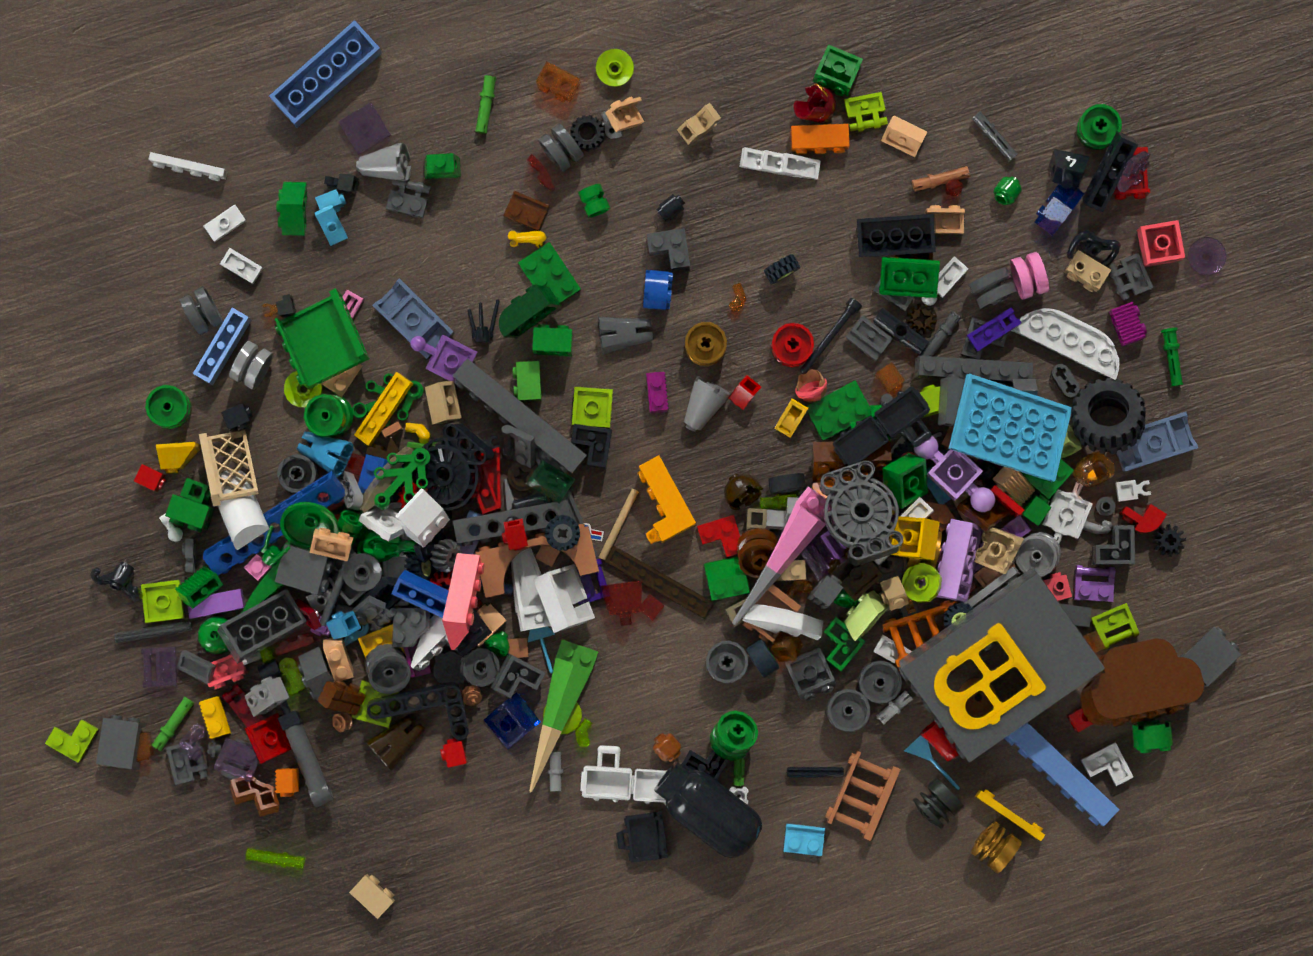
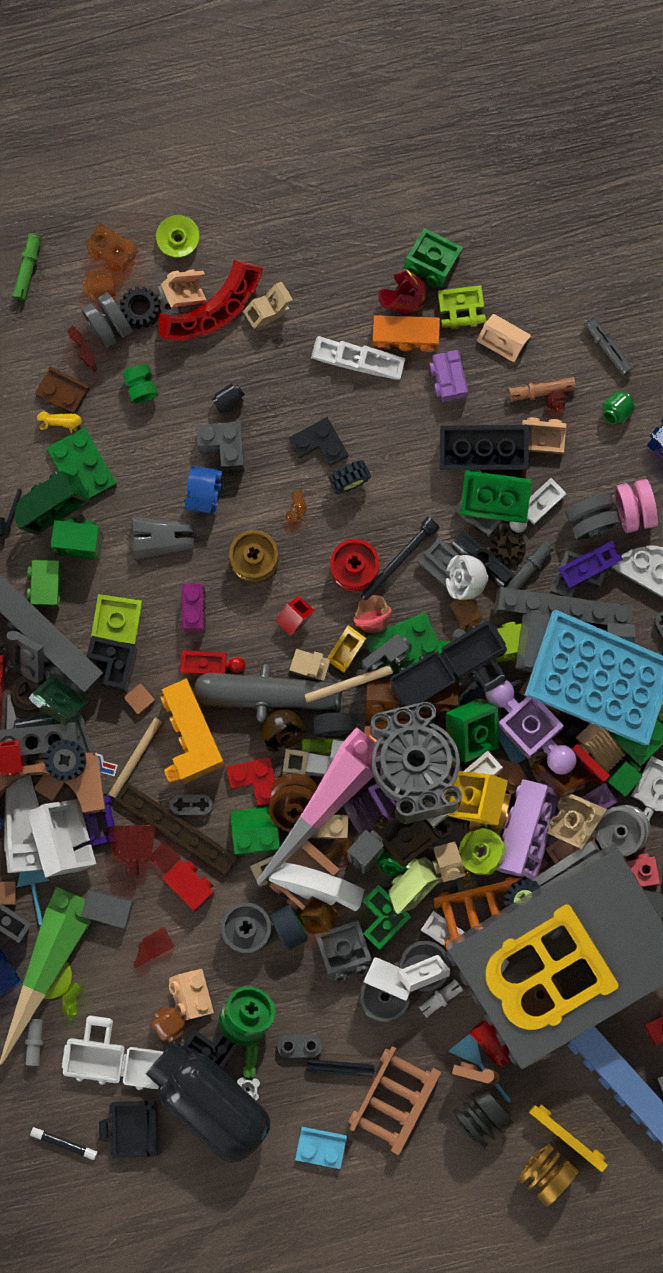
camera: 10 degrees right, 5 degrees down
(550, 115) = (98, 283): none -> clear orange brick
(588, 853) = (63, 1143): none -> black bar
(607, 654) = (107, 908): none -> dark grey panel
(617, 473) = (139, 699): none -> nougat tile
(648, 683) = (153, 947): none -> clear red slope
(654, 130) = (216, 311): none -> red brick
(668, 556) = (191, 799): none -> dark grey beam
(674, 629) = (188, 884): none -> red brick
(675, 438) = (210, 662): none -> red plate
(684, 721) = (191, 994): none -> light nougat bracket
(704, 403) = (246, 624): light grey cone -> none
(726, 460) = (262, 693): none -> dark grey piece
(753, 234) = (320, 436): none -> black plate
(760, 434) = (309, 665): none -> tan brick
(779, 756) = (299, 1045): none -> dark grey plate
(797, 448) = (349, 683): none -> tan bar
(832, 419) = (392, 652): none -> dark grey plate
(852, 695) = (385, 977): none -> white panel
(860, 173) = (449, 376): none -> medium lavender brick
(880, 688) = (423, 973): none -> white plate
(889, 349) = (466, 578): none -> white cylinder
(924, 767) = (470, 1071): none -> nougat plate

